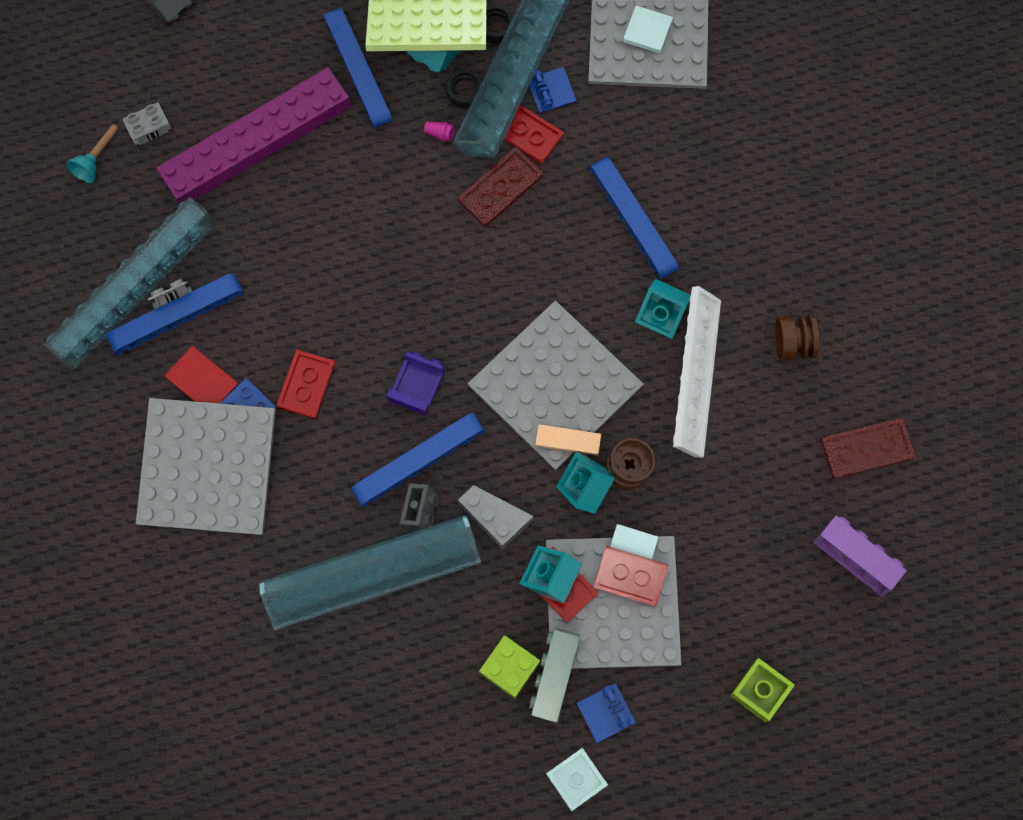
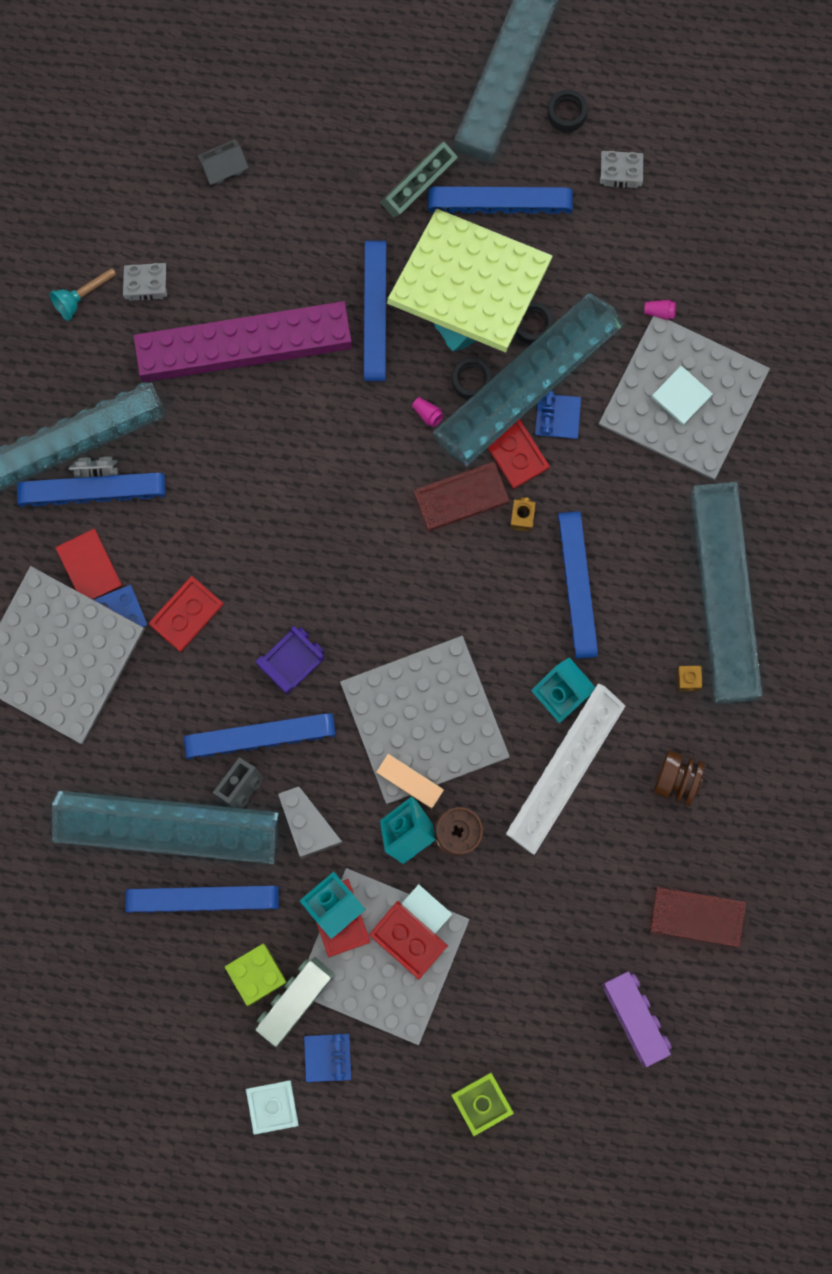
camera: 25 degrees right, 5 degrees up
(433, 620) = (201, 899): none -> blue beam
(563, 187) = (523, 524): none -> pearl gold brick
(762, 171) = (726, 593): none -> clear light blue brick
(764, 253) = (689, 678): none -> pearl gold brick

